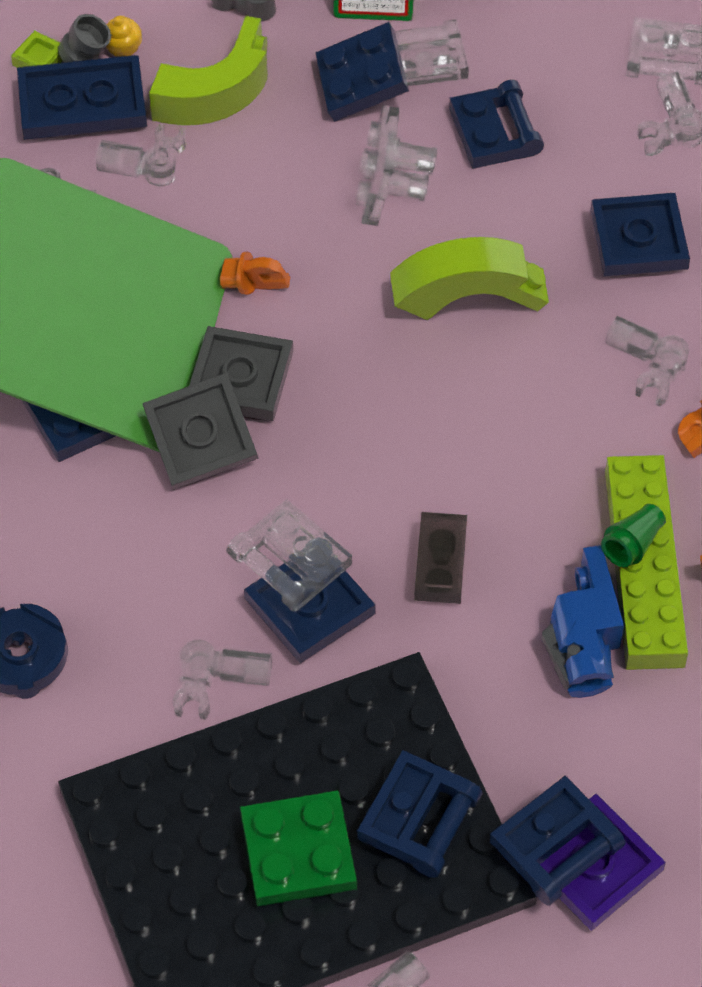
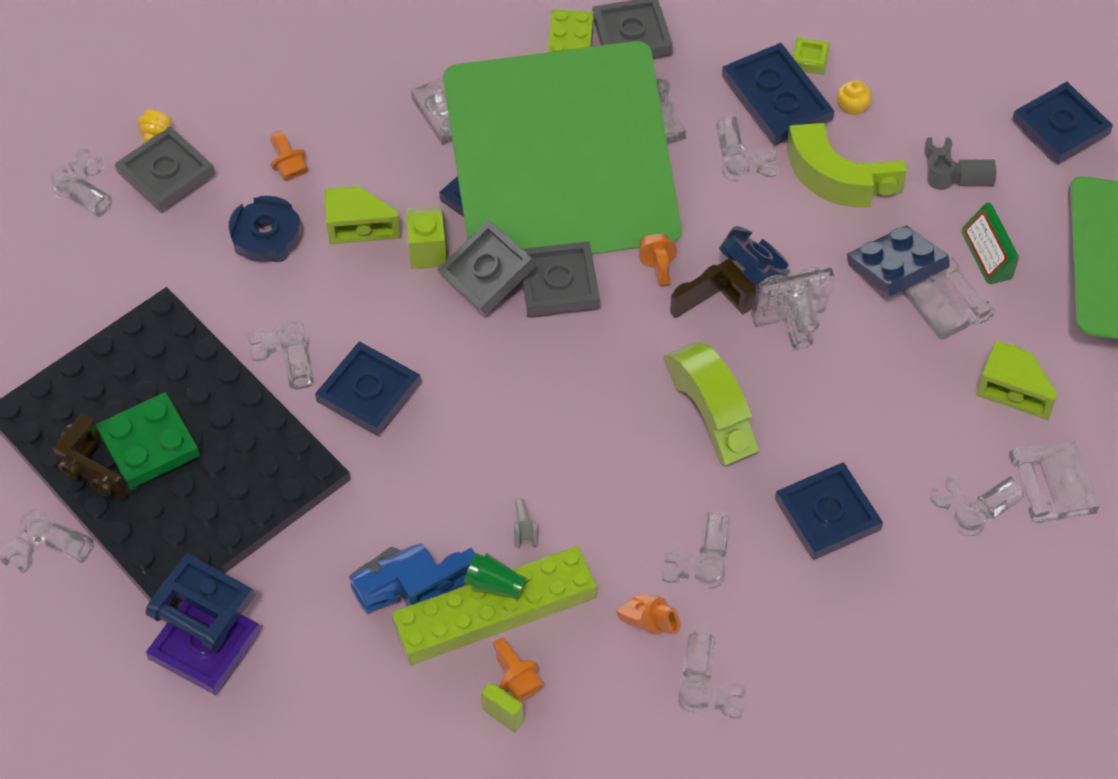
camera: 70 degrees right, 0 degrees up
(52, 543) = (358, 216): none -> lime slope
(85, 39) = (832, 68): dark grey wheel -> none
(113, 480) = (426, 237): none -> lime slope
(279, 924) = (72, 452): none -> dark brown bracket
(297, 183) = (758, 259): none -> dark blue plate
(297, 544) = (404, 362): clear plate -> none
(325, 219) = (717, 278): none -> dark brown bracket
(404, 806) = (196, 493): dark blue plate -> none
(440, 557) = (440, 461): clear smoke plate -> none
(483, 130) = (893, 365): dark blue plate -> none
(548, 33) = (1017, 381): none -> lime slope
(561, 501) = (524, 527): none -> light grey hand

